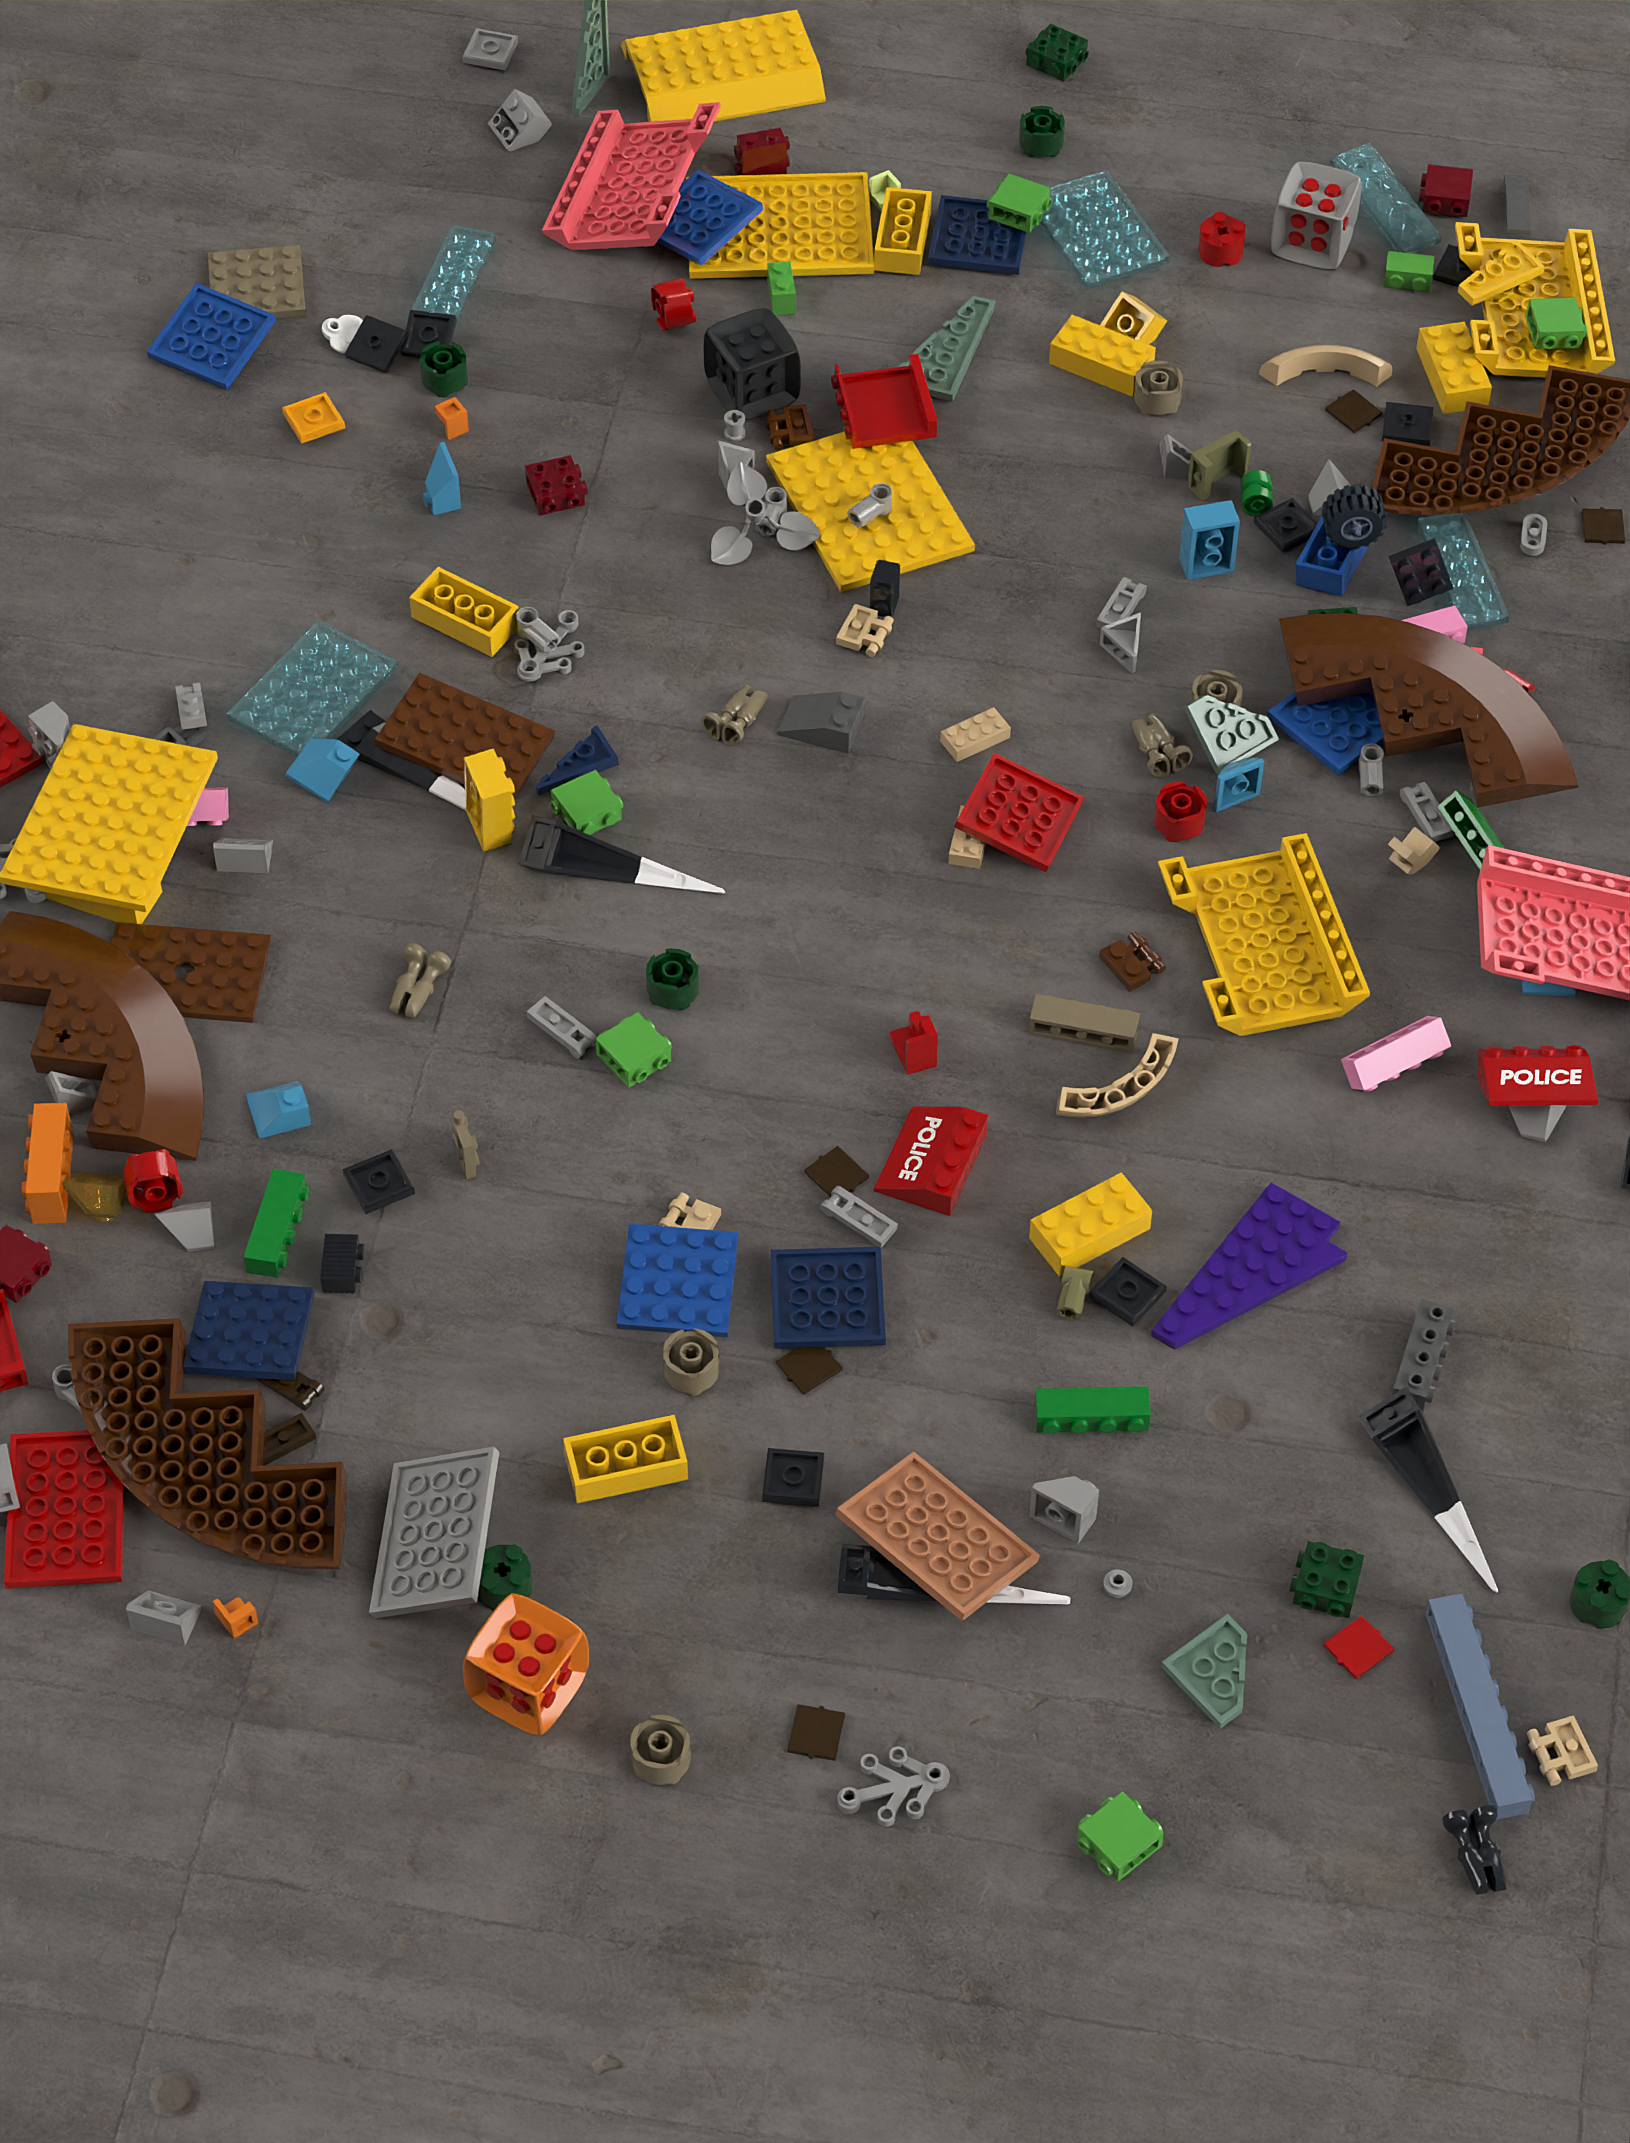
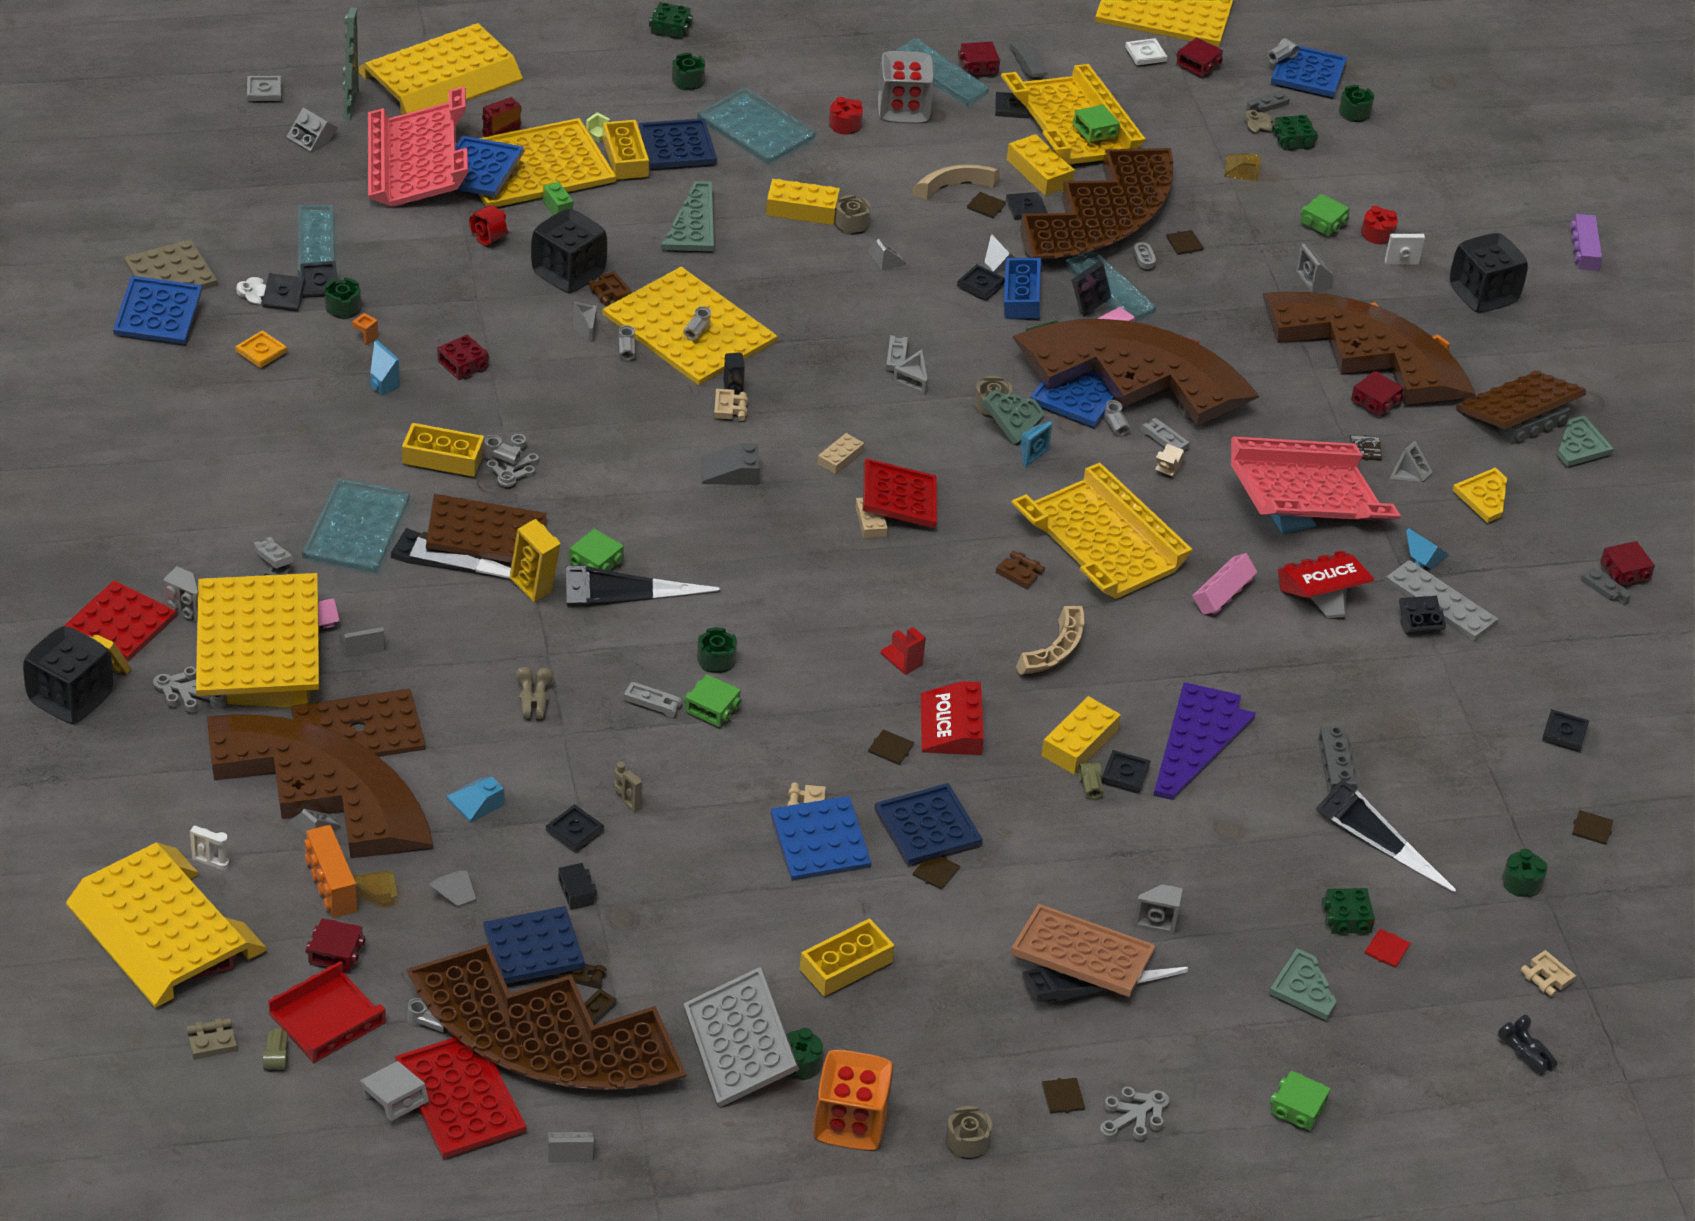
camera: 25 degrees left, 10 degrees down
(152, 1181) = (413, 864): red brick -> none
(236, 1616) = (622, 1132): orange panel -> none
(276, 1223) = (515, 871): green brick -> none
(322, 767) = (393, 570): dark azure slope -> none
(586, 757) = (577, 526): dark blue wing -> none
(691, 1361) = (858, 885): dark tan brick -> none
(734, 420) = (571, 291): light grey bush -> none
(741, 707) = (670, 471): dark tan piece -> none
(748, 489) = (608, 371): light grey plant -> none
(793, 1477) = (964, 941): black plate -> none
(859, 1216) = (922, 768): light grey plate -> none
(885, 405) = (673, 259): red panel -> none
(1019, 203) = (699, 116): bright green brick -> none
(1084, 1023) = (1010, 614): dark tan brick -> none
(1092, 1409) = (1142, 847): green brick -> none
(1117, 1590) = (1214, 950): light grey plate -> none
(1134, 319) = (813, 173): yellow slope -> none
(1157, 737) = (968, 433): dark tan piece -> none
(1180, 811) = (1006, 469): red brick -> none
(1209, 539) = (940, 297): dark azure brick -> none
(1217, 460) = (919, 247): olive panel -> none
(1256, 492) = (951, 265): green wheel -> none
(1354, 516) = (1035, 261): black wheel -> none
(1408, 271) = (979, 112): bright green brick -> none
(1469, 825) = (1204, 441): green brick -> none
(1479, 1706) = (1482, 960): sand blue brick -> none
(1506, 271) = (1045, 100): yellow wing -> none

